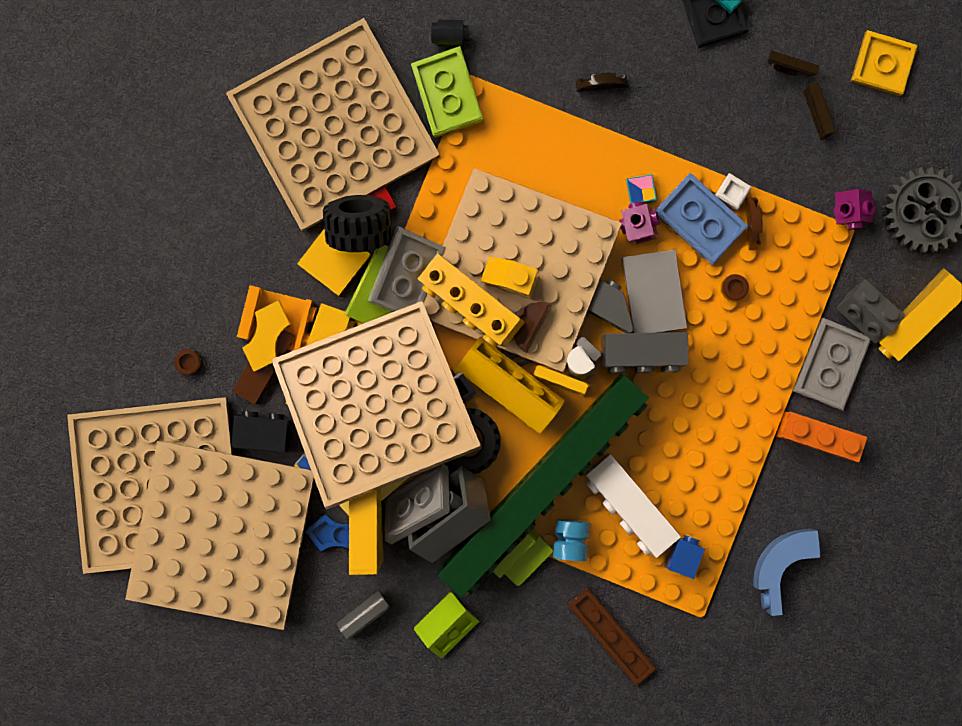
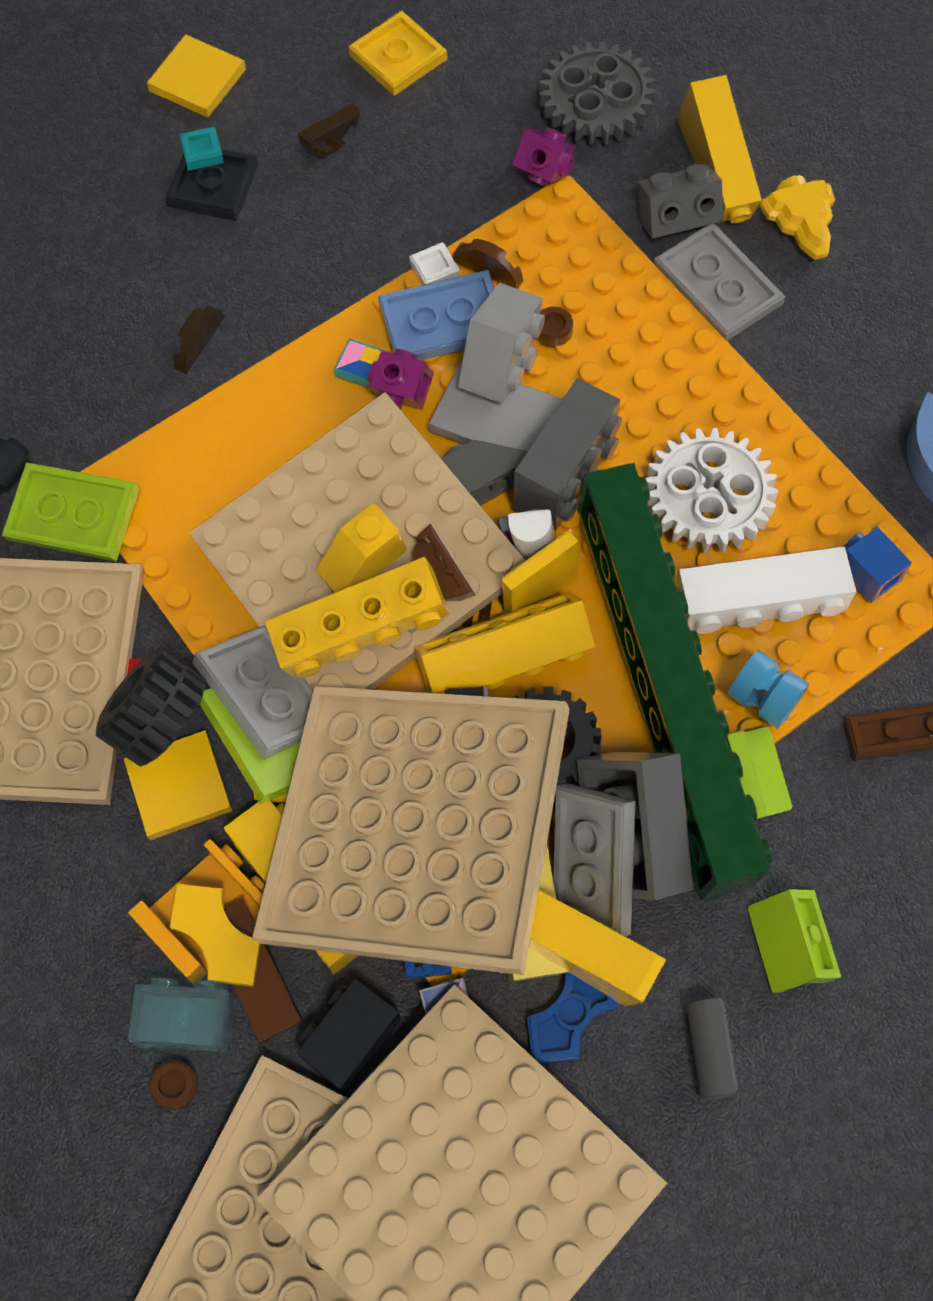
camera: 55 degrees left, 20 degrees down
(219, 345) = (181, 1016): none -> clear light blue brick
(692, 271) = (501, 342): none -> light grey brick
(700, 450) = (711, 490): none -> white gear
(819, 110) = (404, 134): dark brown tile -> none
(821, 437) = (805, 332): orange brick -> none
(910, 389) = (803, 212): none -> yellow rock

